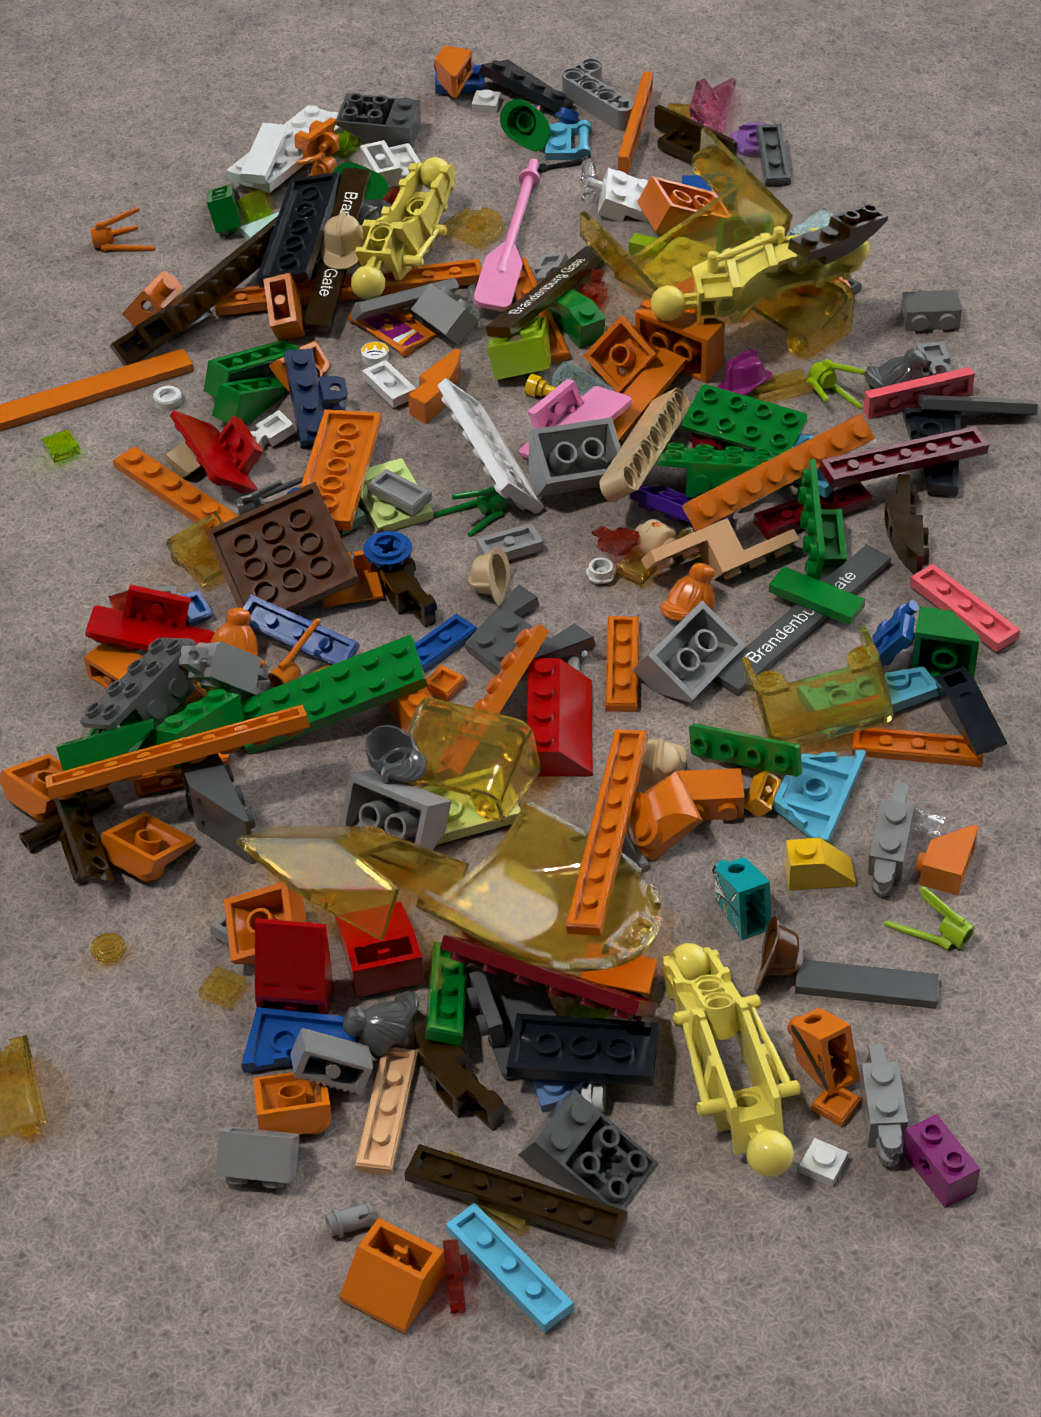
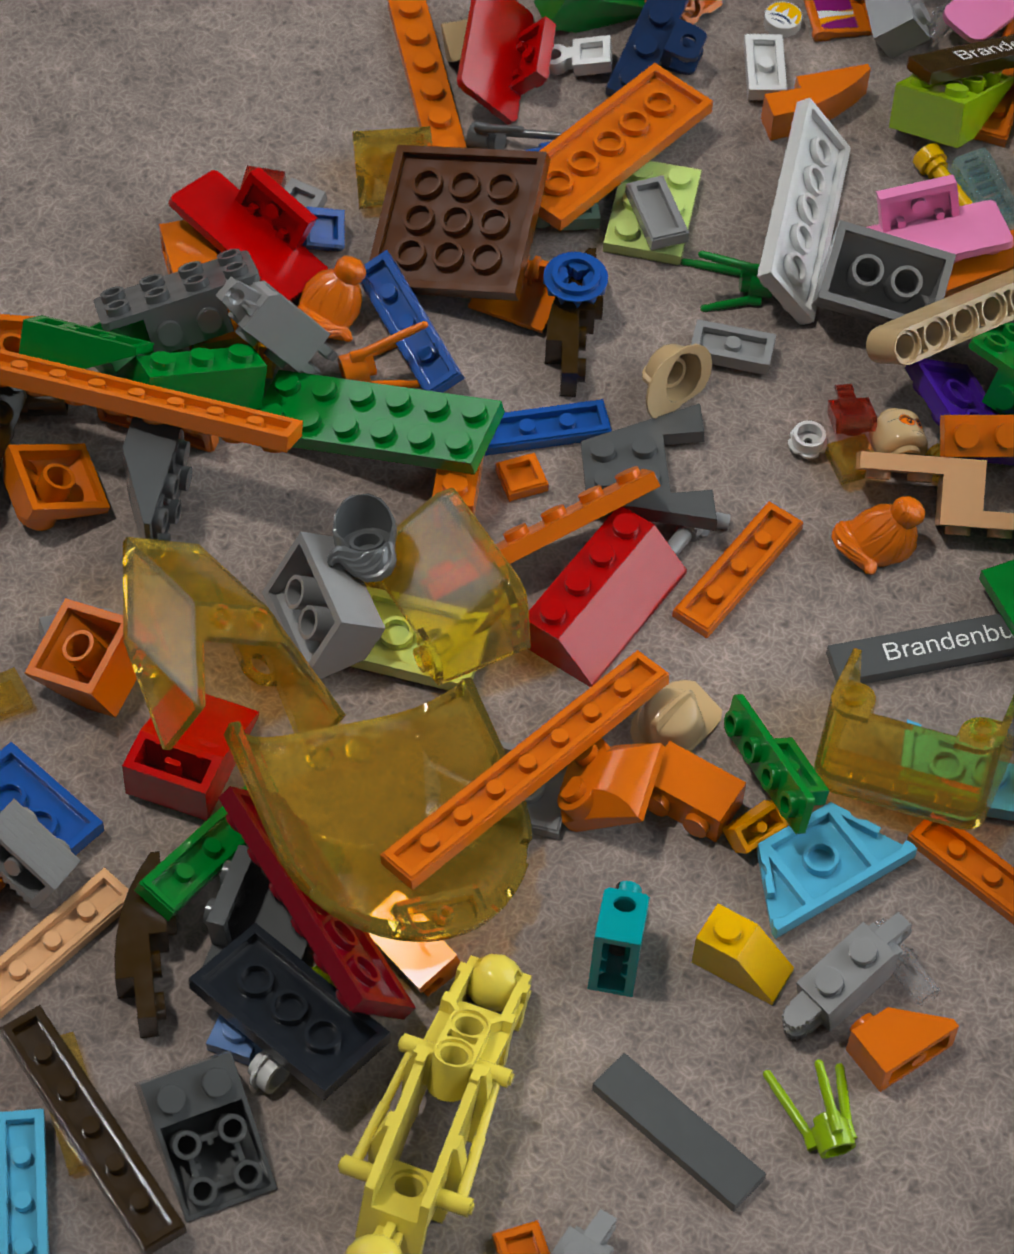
camera: 30 degrees right, 10 degrees up
(292, 966) = (64, 725): red slope -> none
(382, 1023) = (112, 843): dark grey hair -> none
(690, 655) = (815, 606): light grey slope -> none
(780, 952) = (604, 1038): reddish brown piece -> none
(825, 1049) = (549, 1159): orange torso -> none

